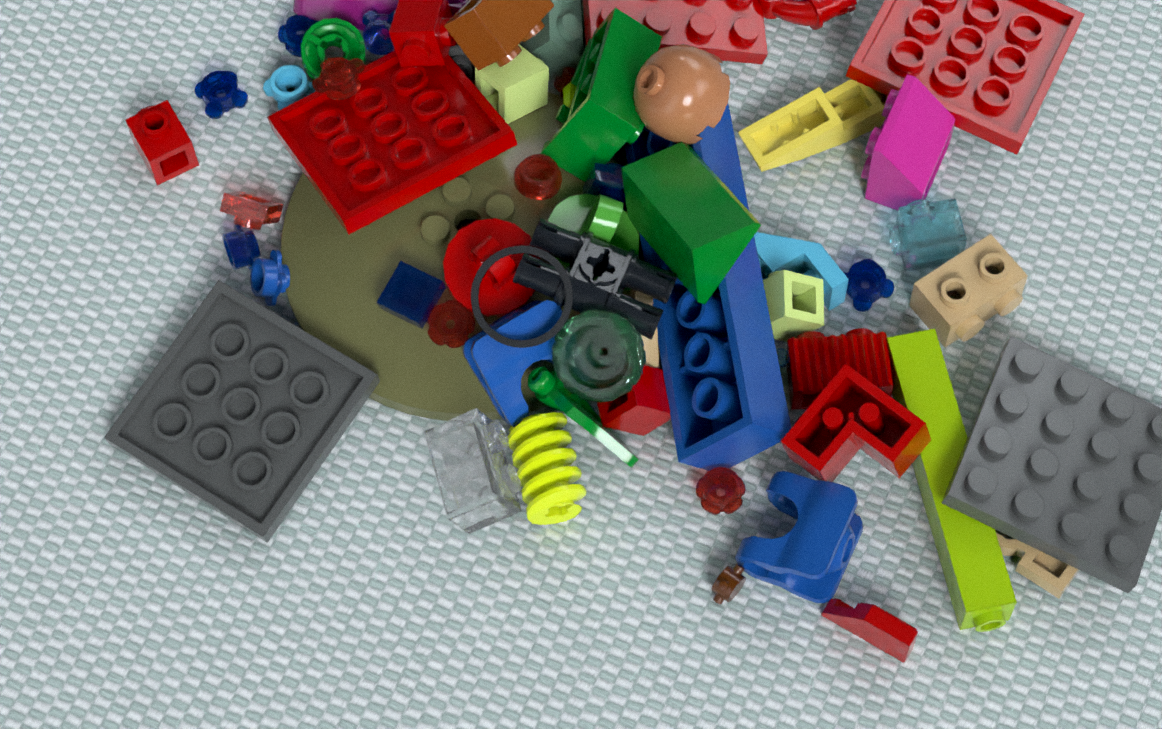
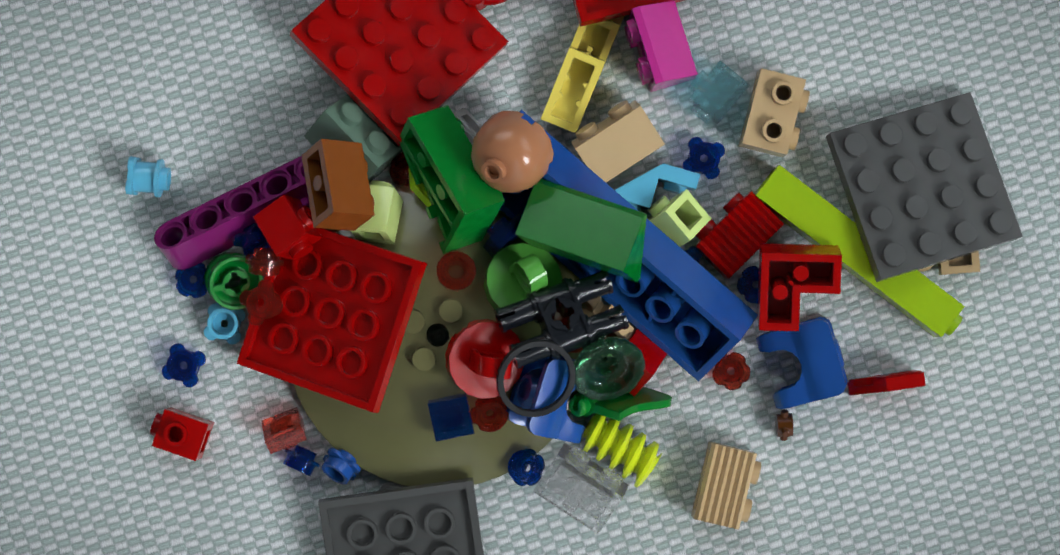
camera: 45 degrees left, 25 degrees up
(374, 45) = (264, 262): none -> clear red plate
(437, 407) = (518, 464): none -> clear blue plate
(617, 588) = (725, 485): none -> tan brick
(794, 198) = (617, 140): none -> tan brick

